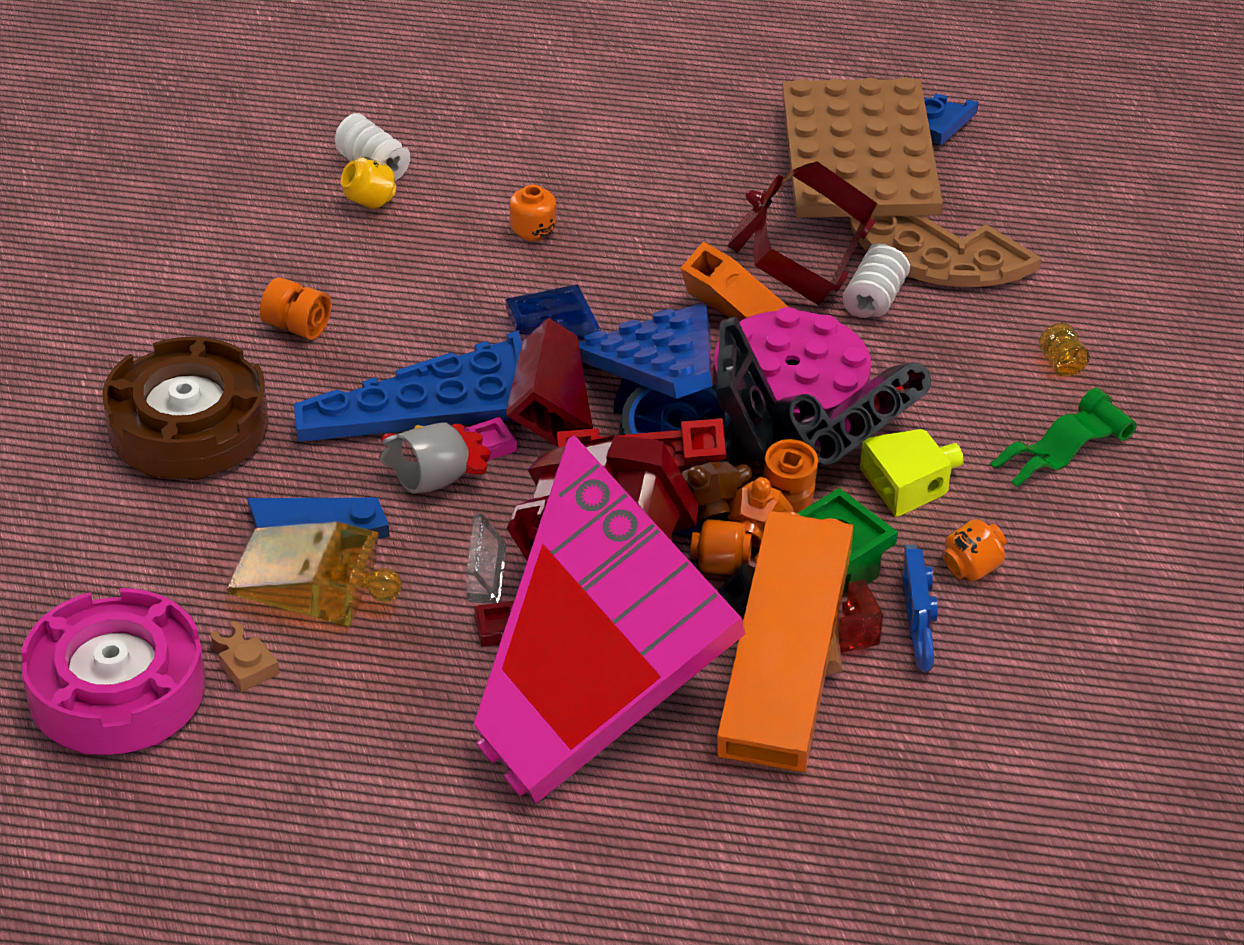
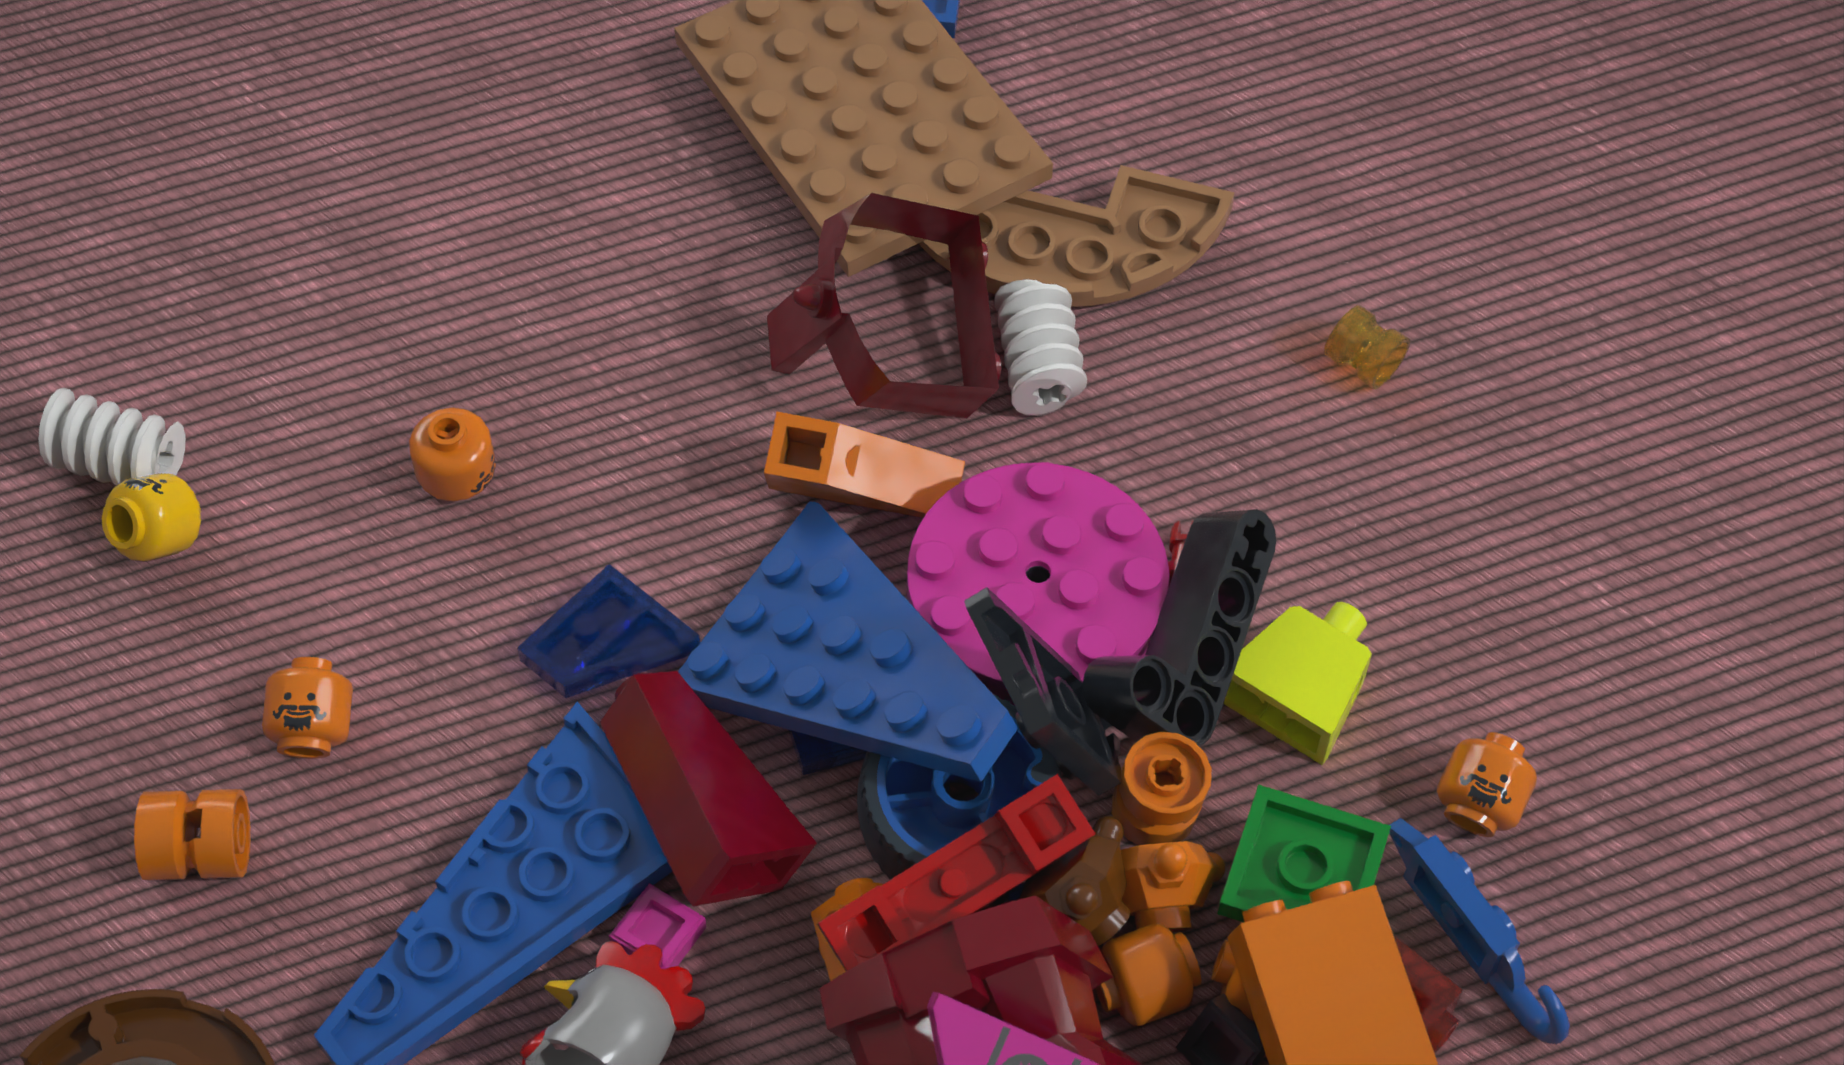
camera: 30 degrees left, 15 degrees up
(386, 284) = (307, 708): none -> orange head
(1066, 435) = (1470, 500): green flag -> none

